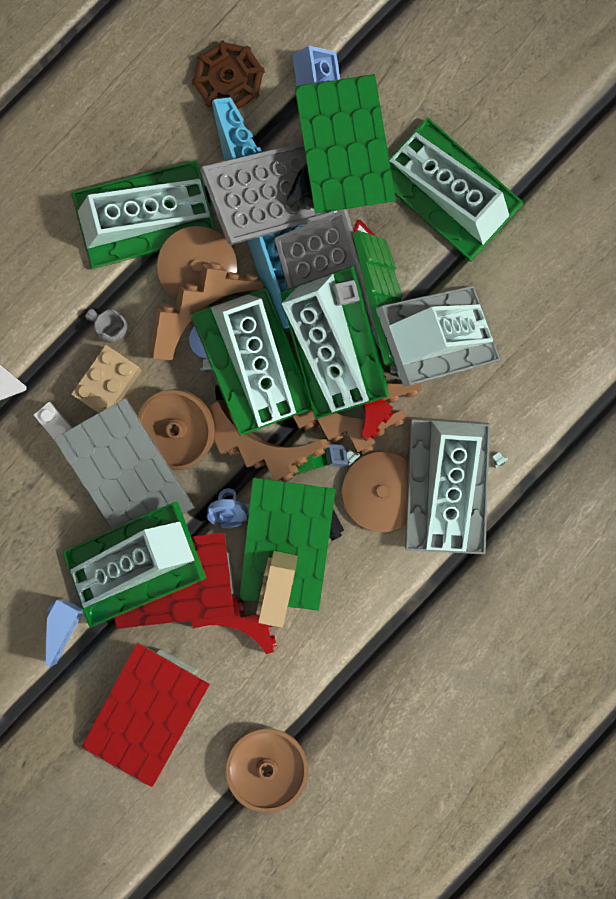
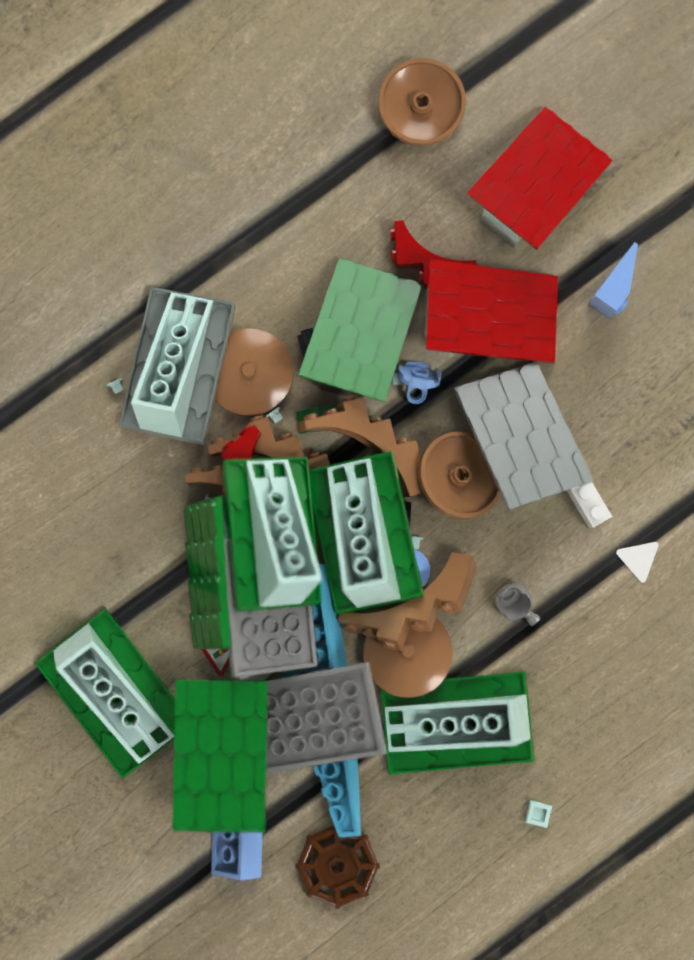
camera: 165 degrees left, 0 degrees up
(61, 149) = (538, 813): none -> light aqua tile
(106, 380) = (527, 541): tan brick -> none
(134, 564) = (528, 336): piece -> none
(276, 588) = (379, 282): tan brick -> none
(300, 187) = (278, 718): black arch -> none
(336, 455) = (290, 417): sand blue plate -> none
(346, 293) = (248, 580): light grey plate -> none
(438, 335) = (157, 523): piece -> none

